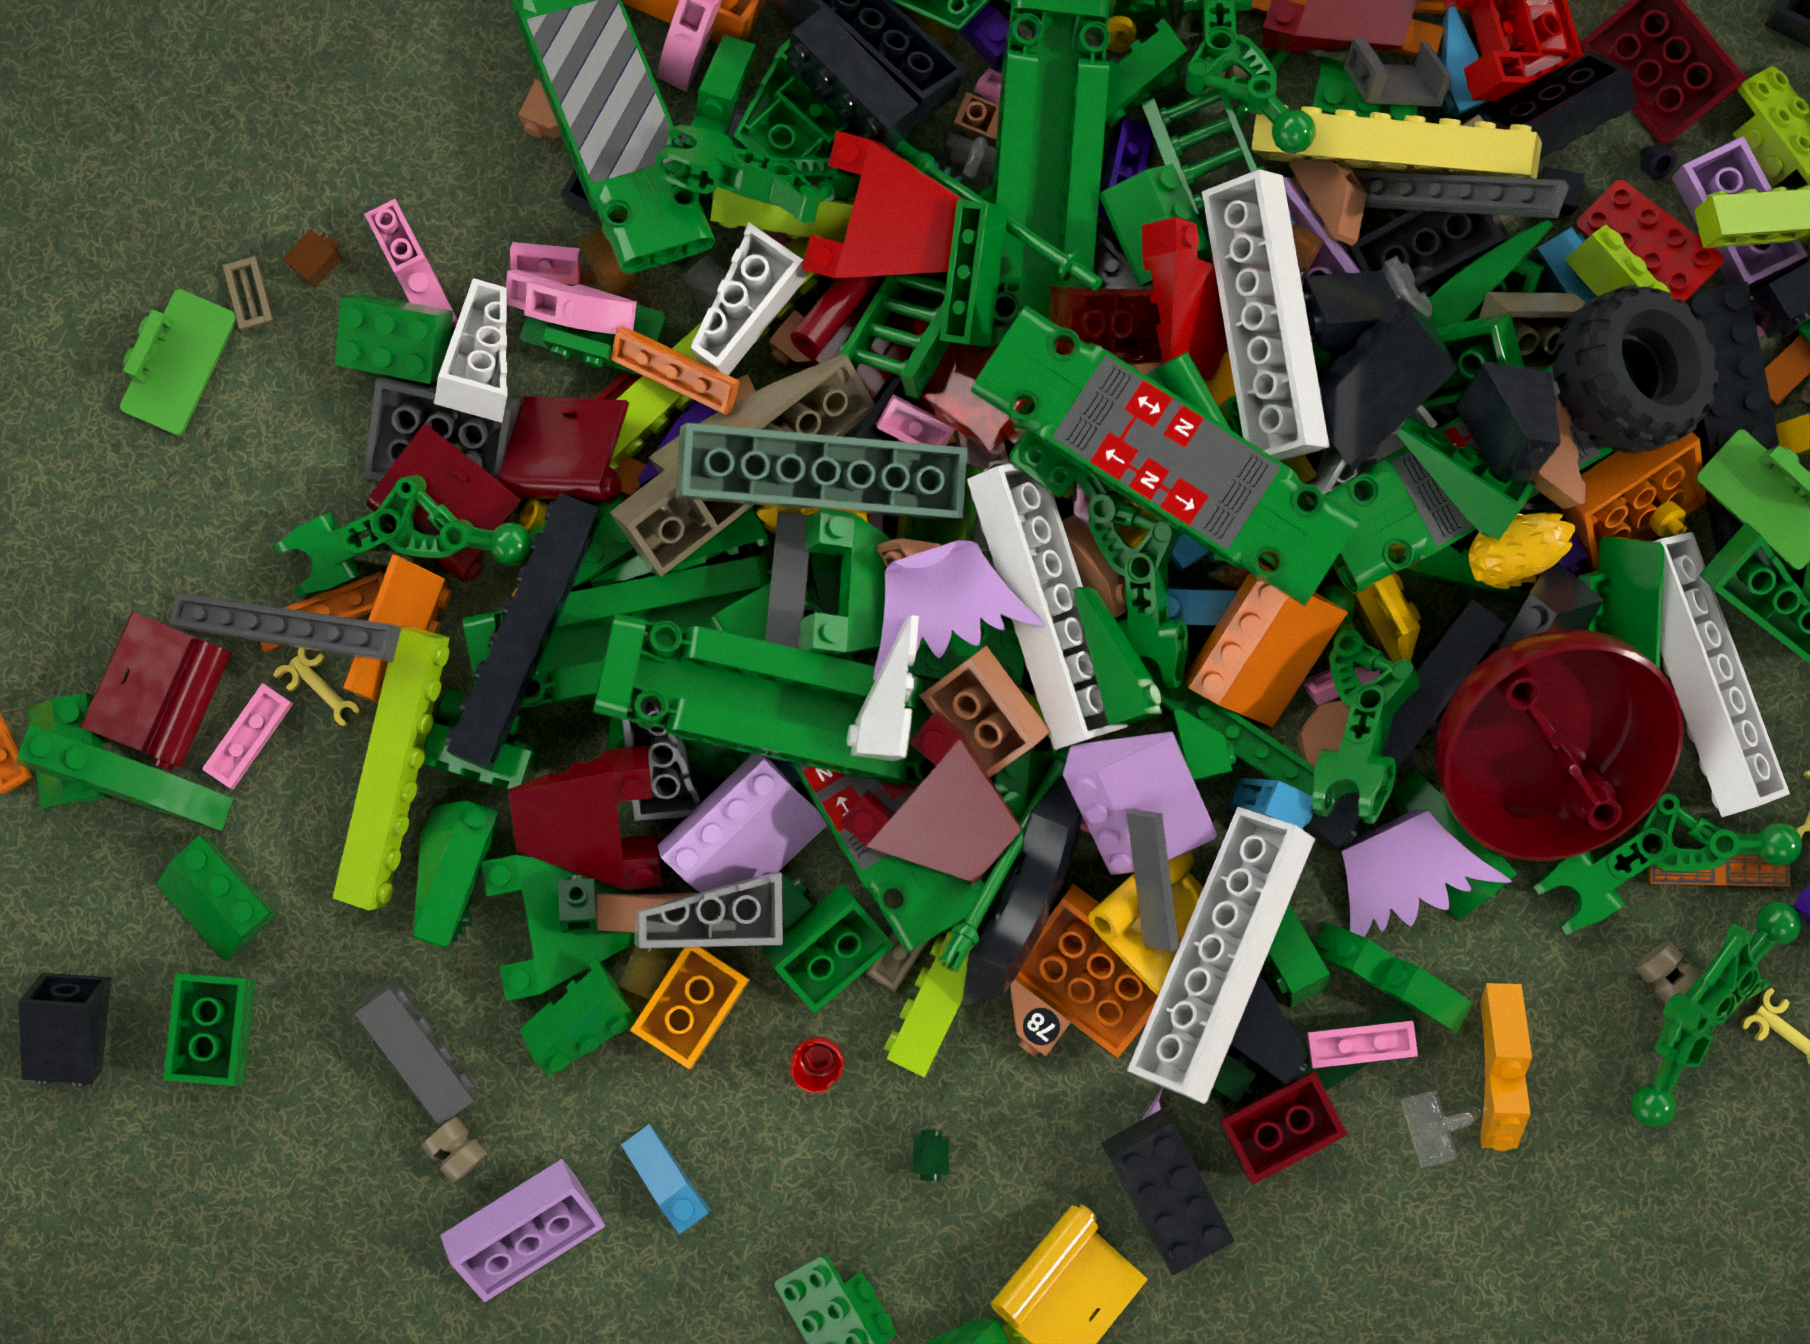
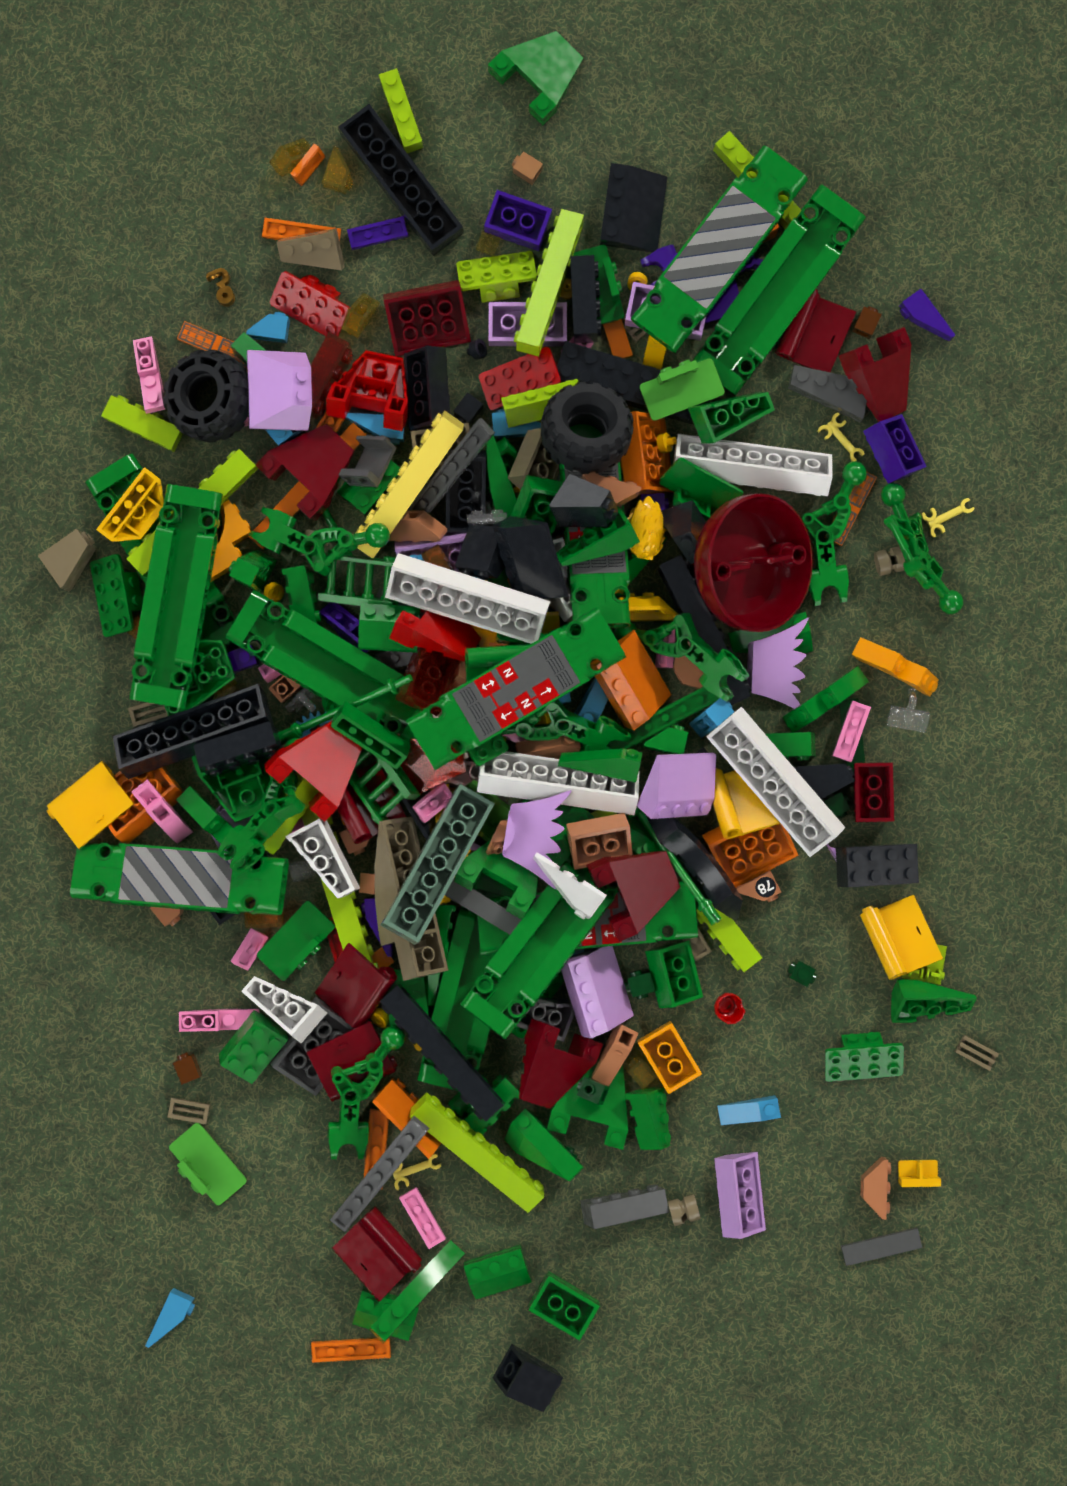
camera: 65 degrees left, 5 degrees up
(568, 305) = (281, 948): bright pink slope -> none
(674, 370) = (343, 911): orange tile -> none
(724, 916) = (634, 1024): light grey wedge -> none
(1152, 879) = (723, 798): dark grey tile -> none

